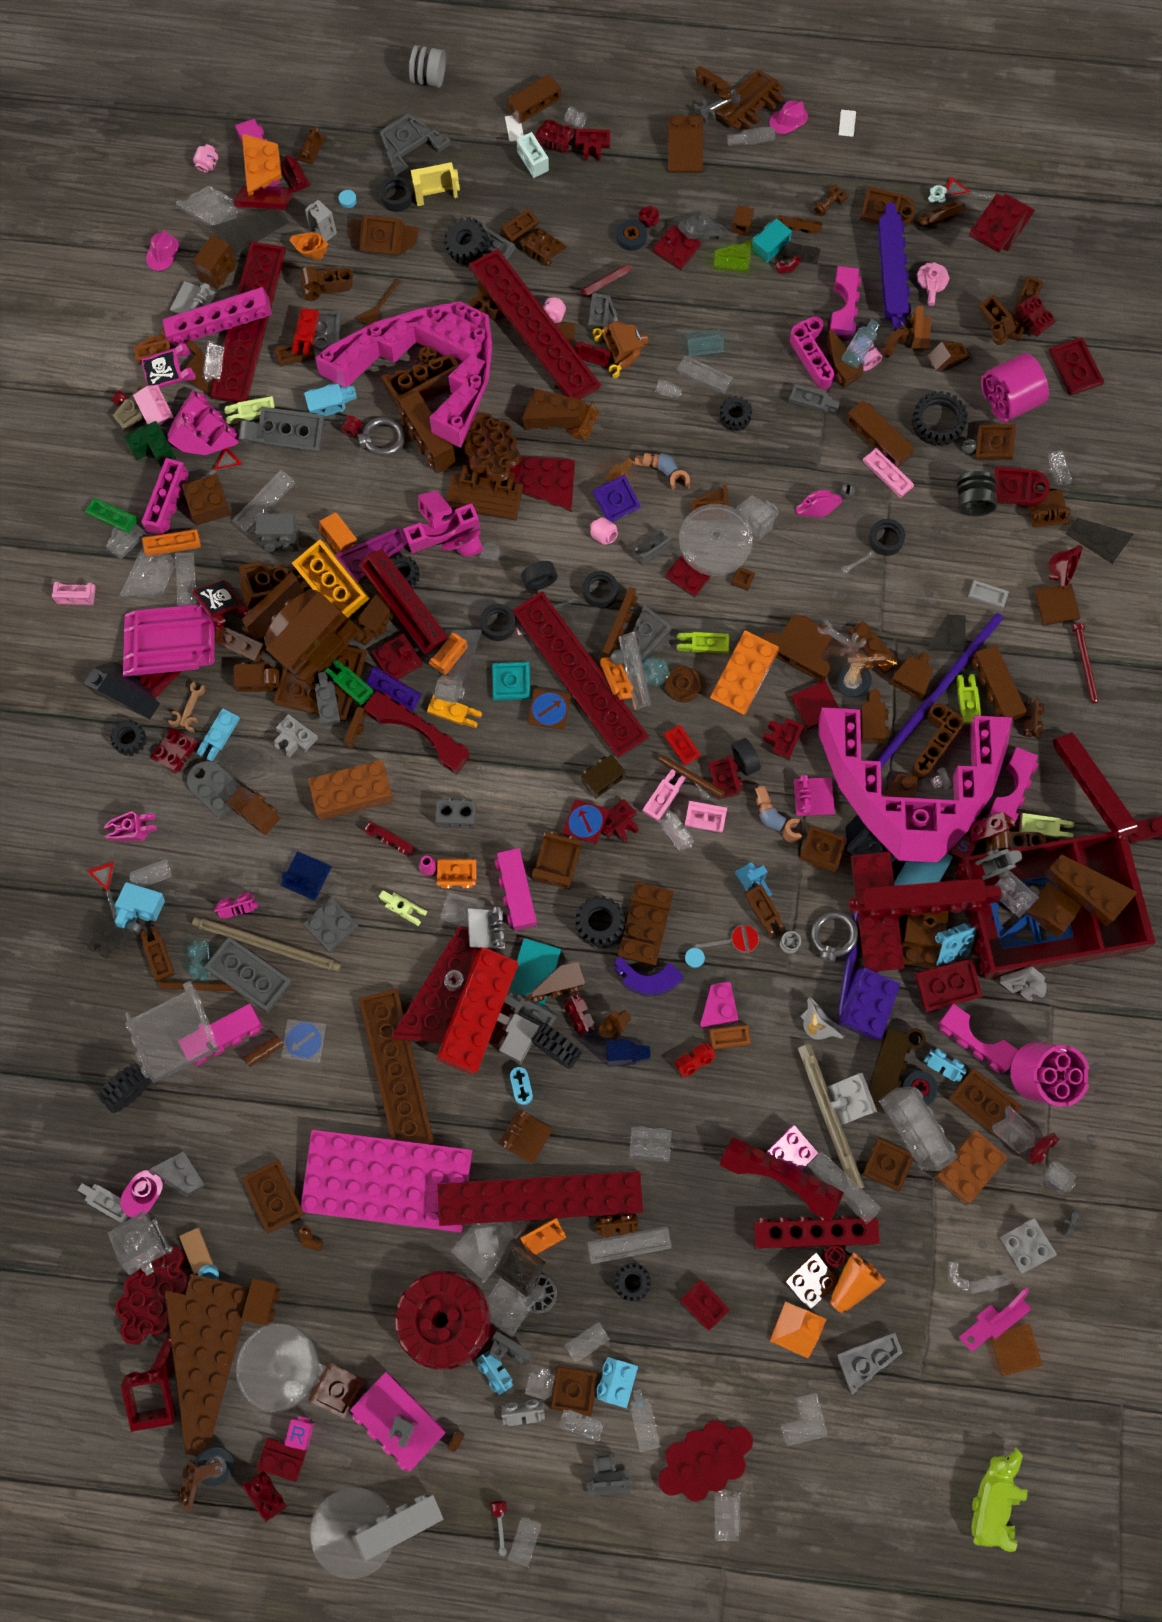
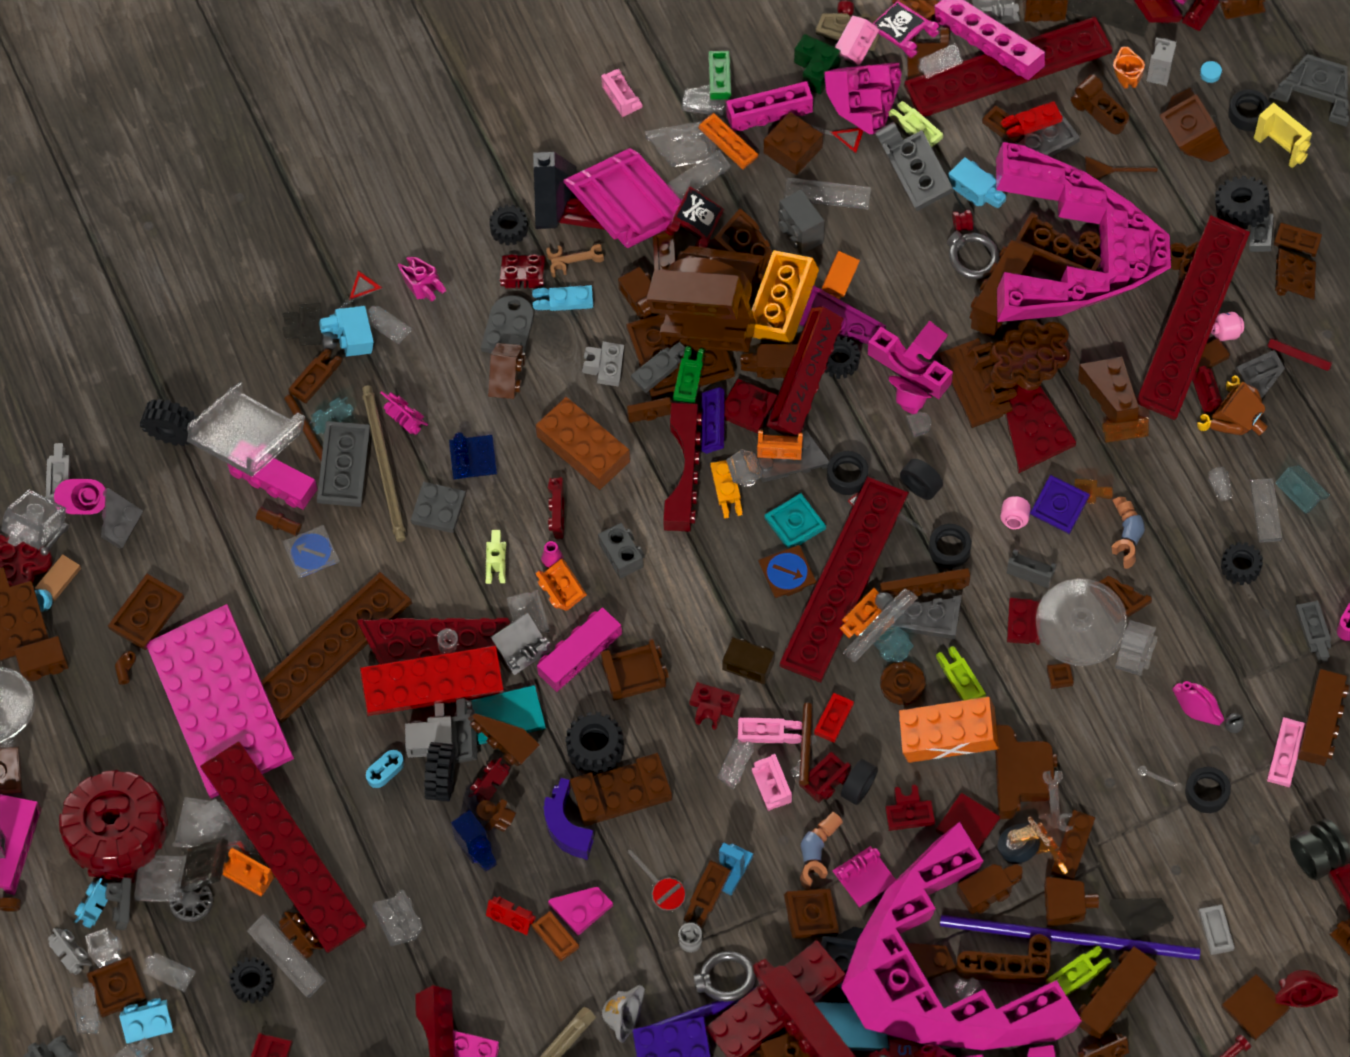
camera: 60 degrees right, 10 degrees down
(525, 1136) = (337, 801): reddish brown hinge -> none
(585, 821) = (690, 672): piece -> none
(694, 958) = (616, 856): medium azure tile -> none

